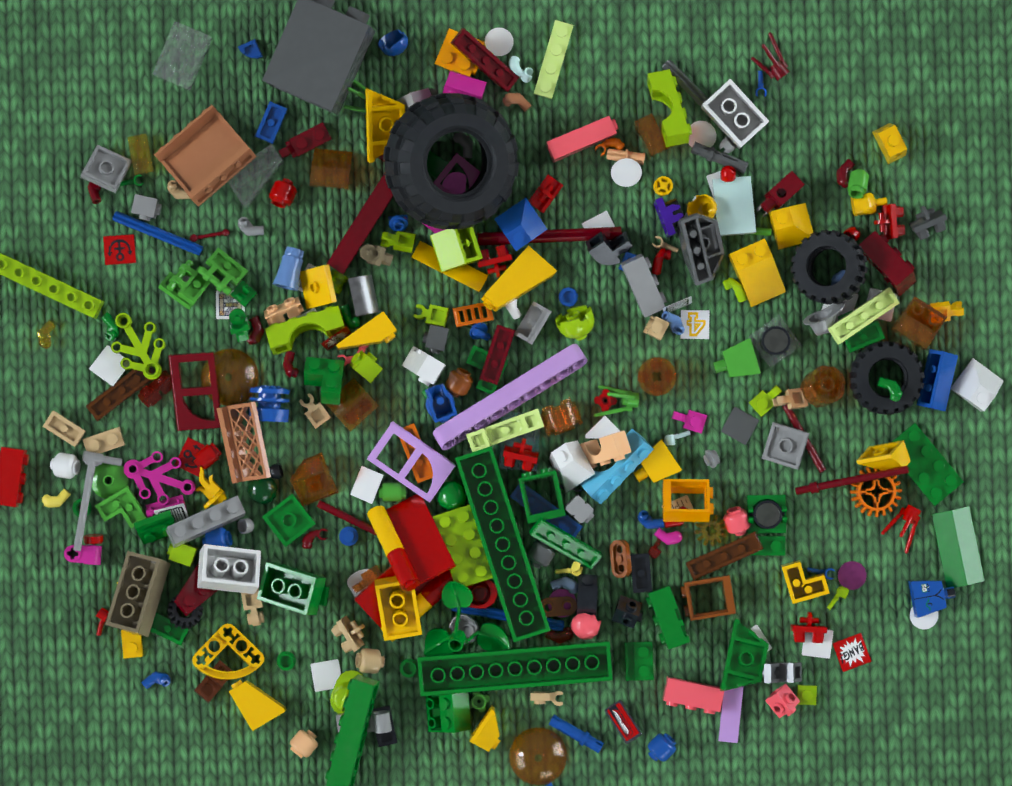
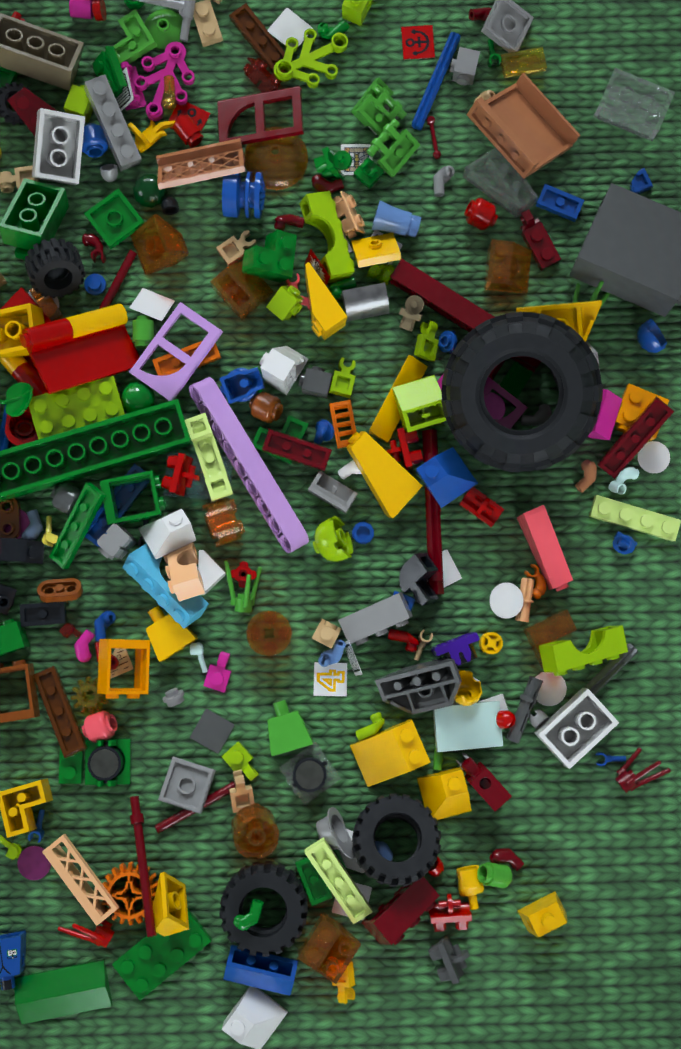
camera: 90 degrees right, 5 degrees down
(174, 473) = (168, 98): none -> clear yellow arm
(339, 568) = (51, 255): none -> black tyre
(575, 70) = (623, 543): none -> blue plate
(866, 536) = (77, 881): none -> light nougat fence

